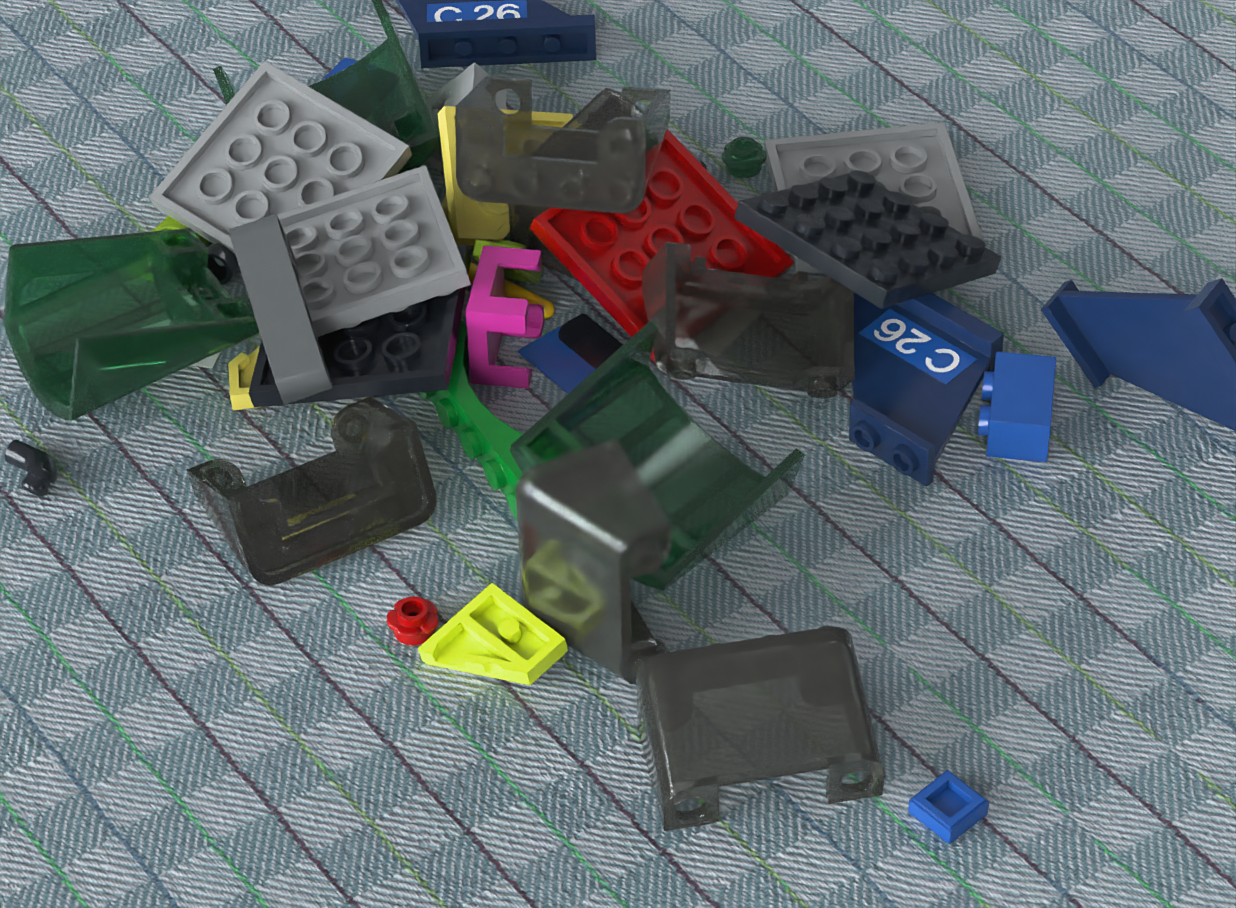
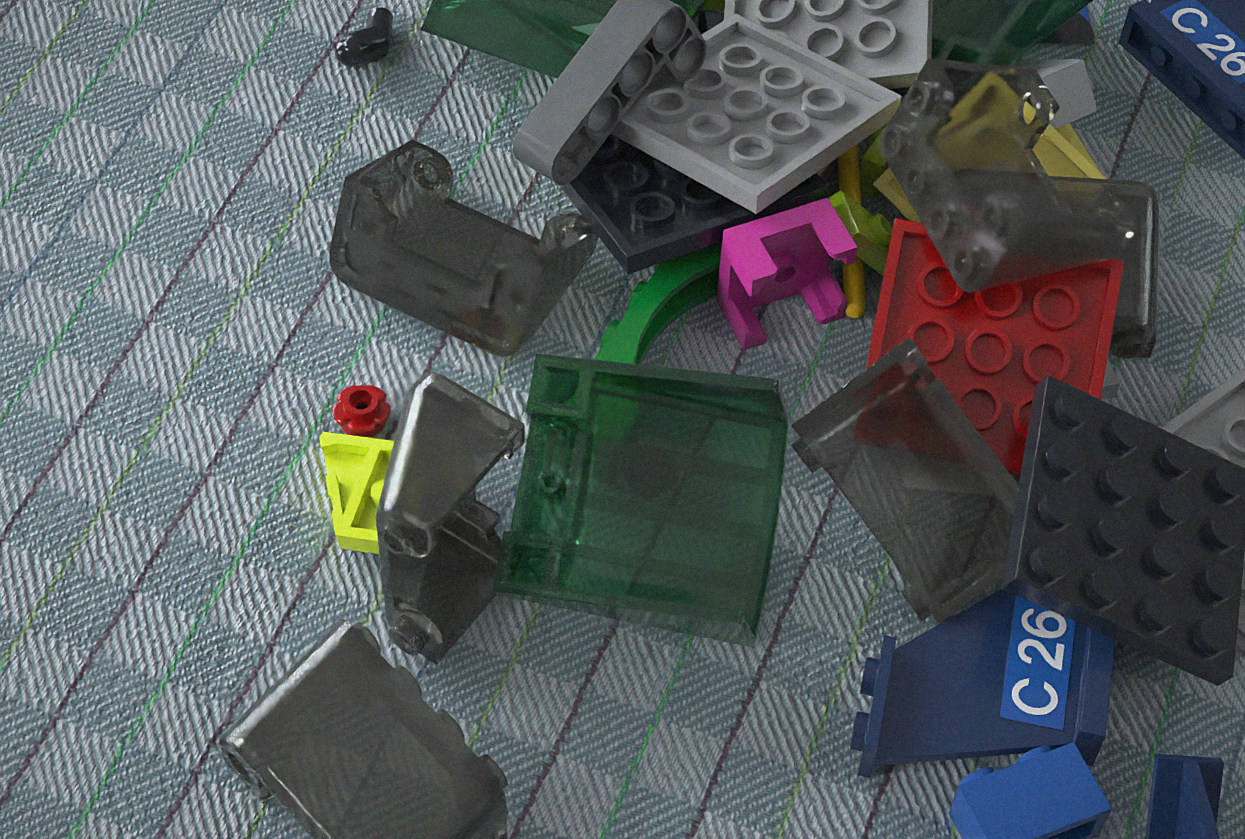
camera: 55 degrees right, 10 degrees up
(571, 351) = (814, 360): sticker -> none
(743, 157) = (1213, 363): clear green plate -> none

